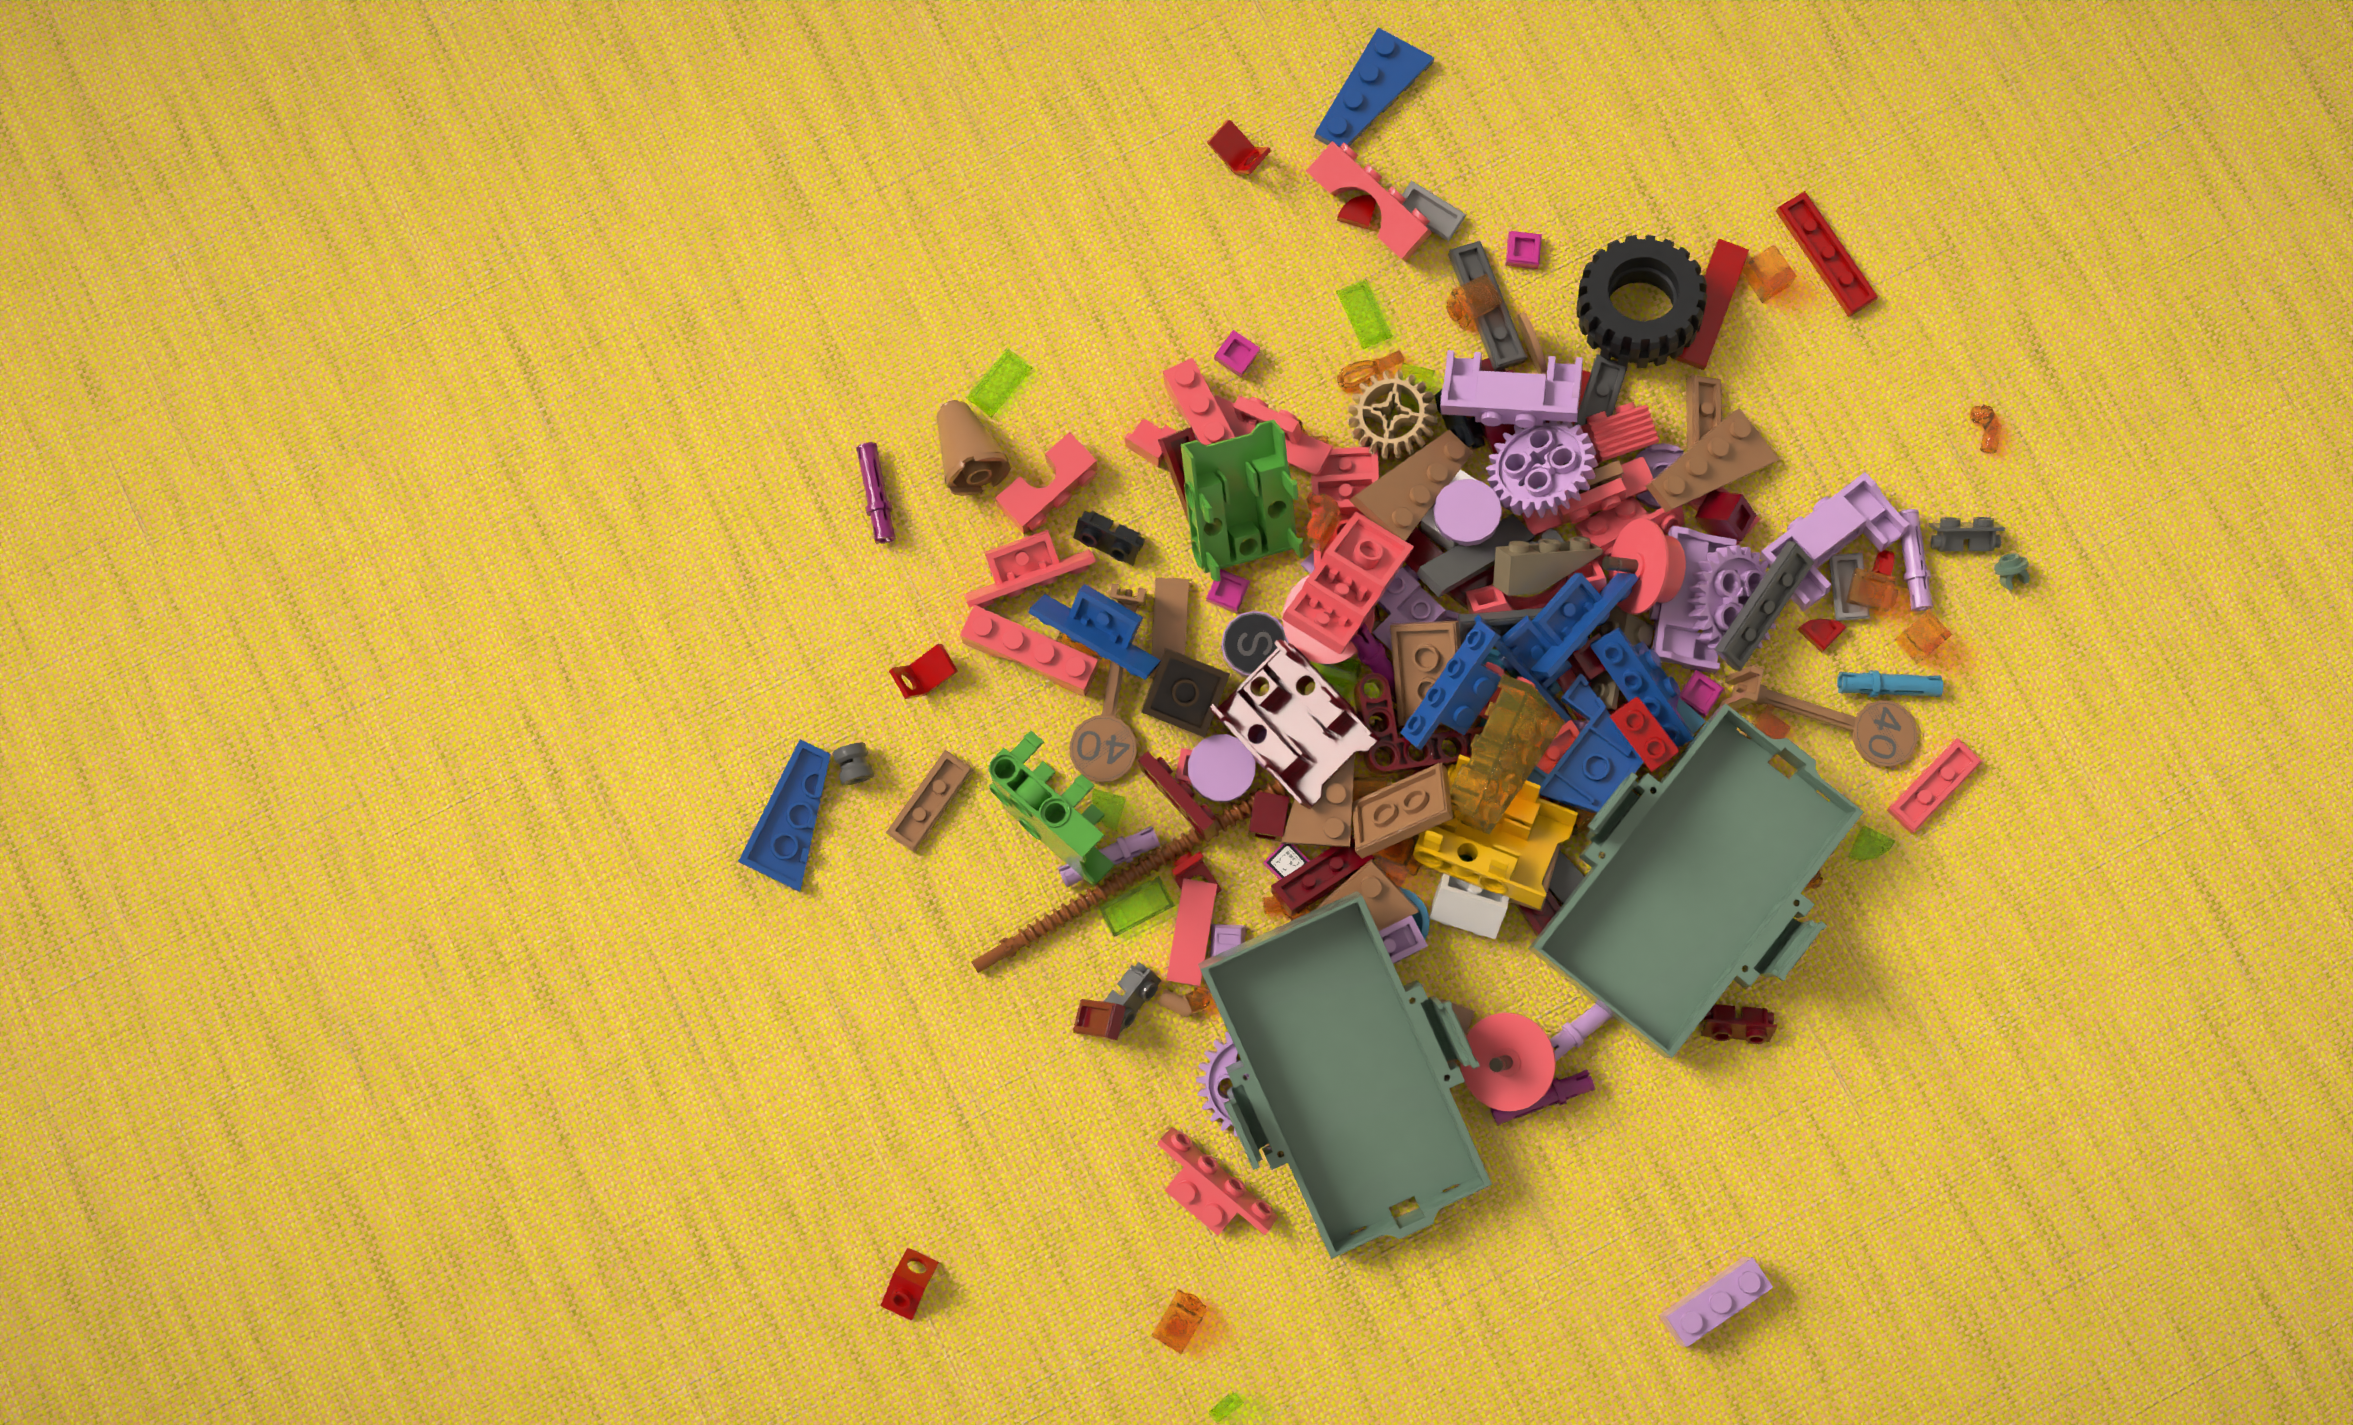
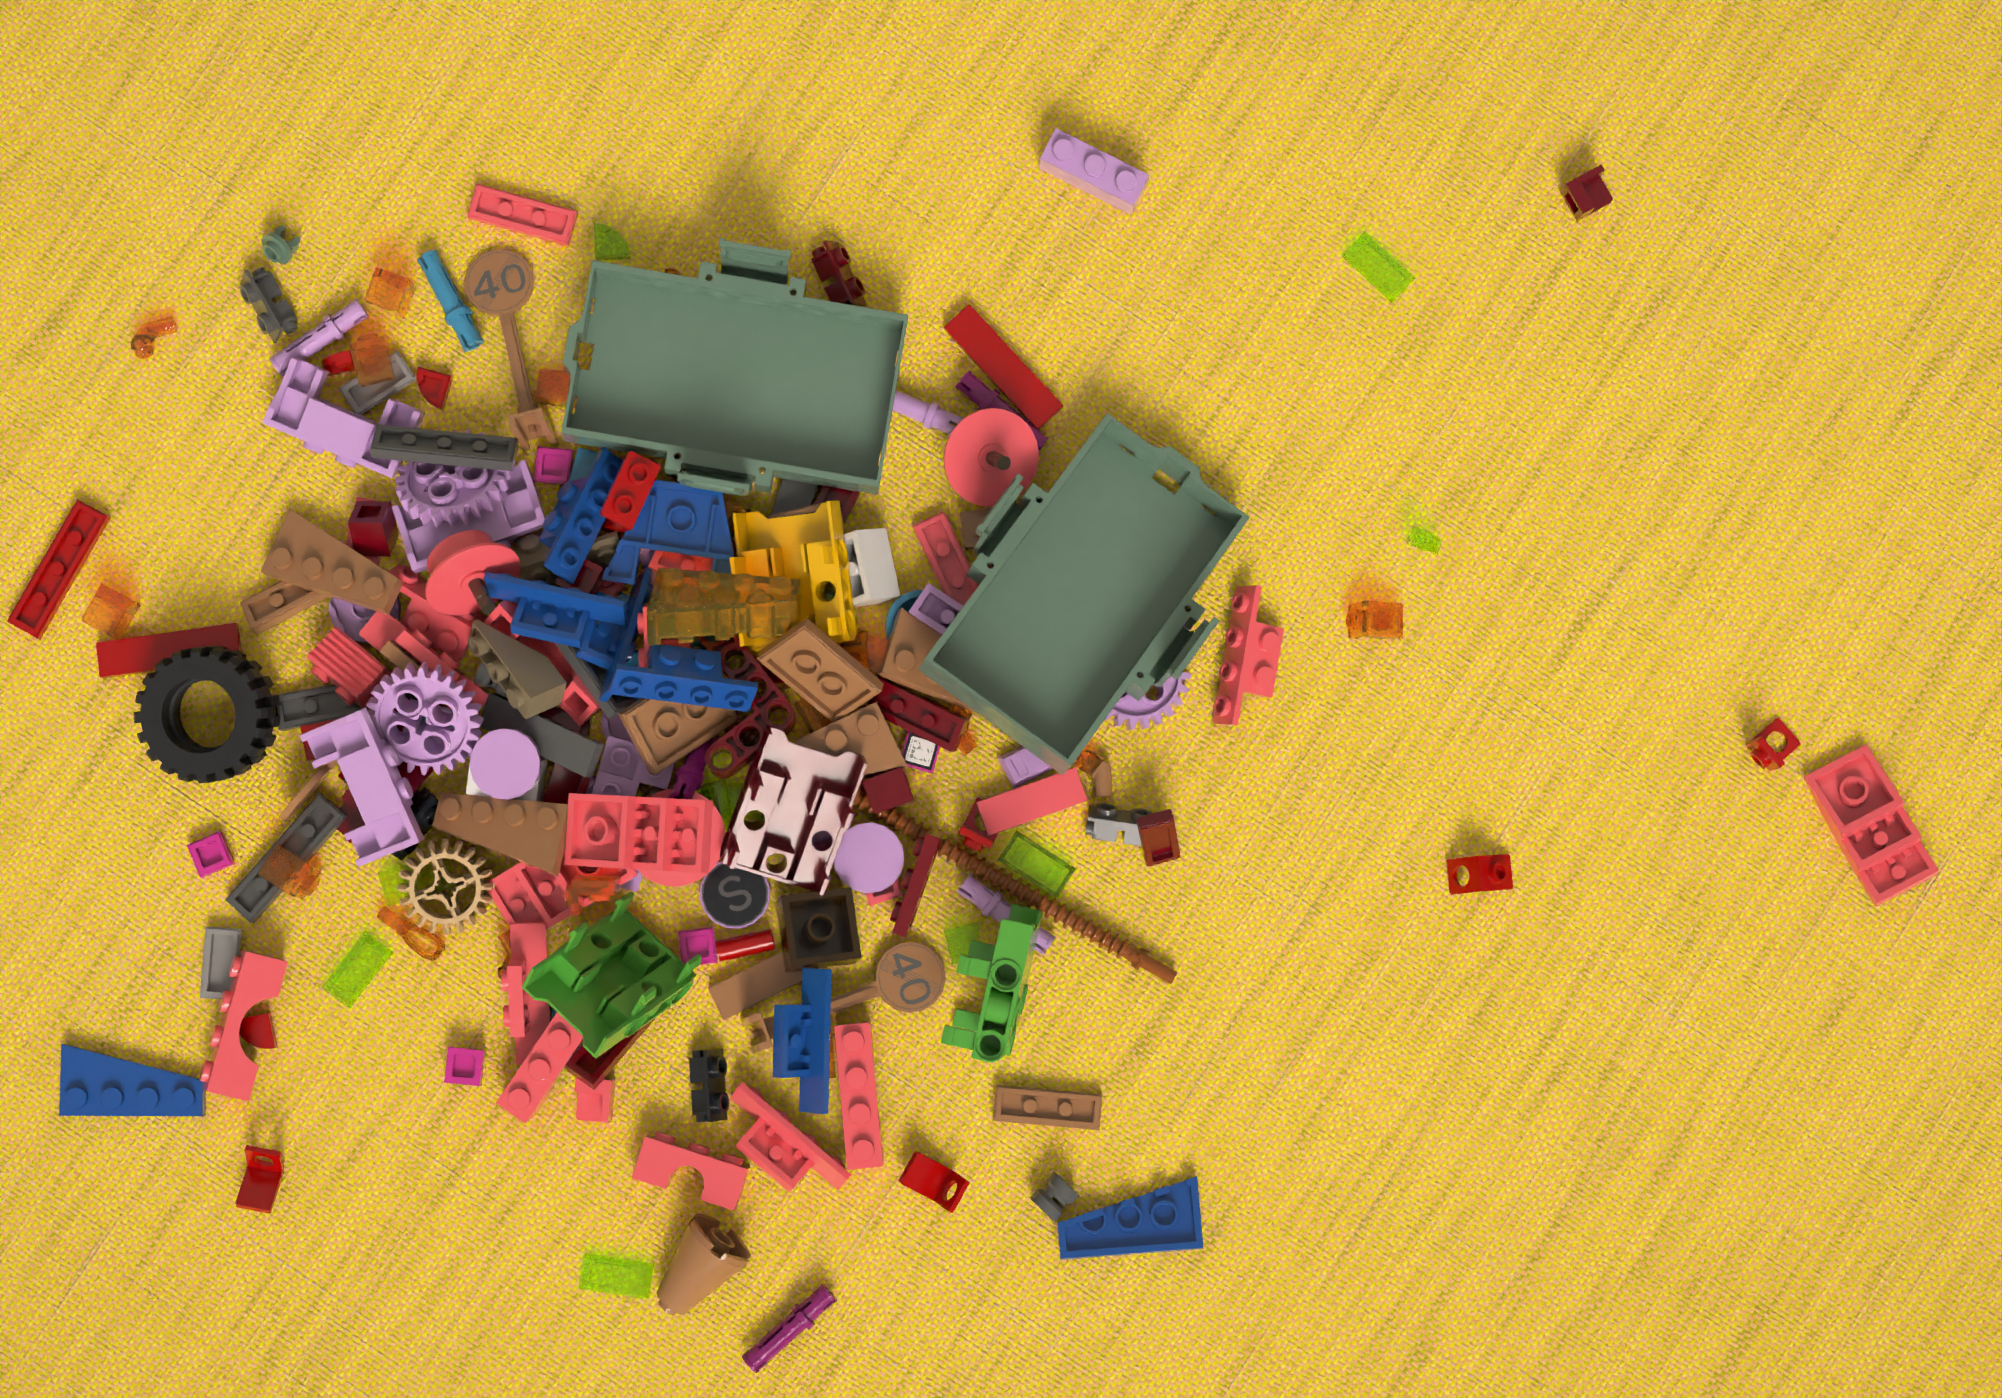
camera: 120 degrees left, 5 degrees up
(1207, 629) = (745, 945): none -> red hinge
(1444, 978) = (946, 557): none -> coral tile
(1581, 1122) = (1003, 367): none -> red tile

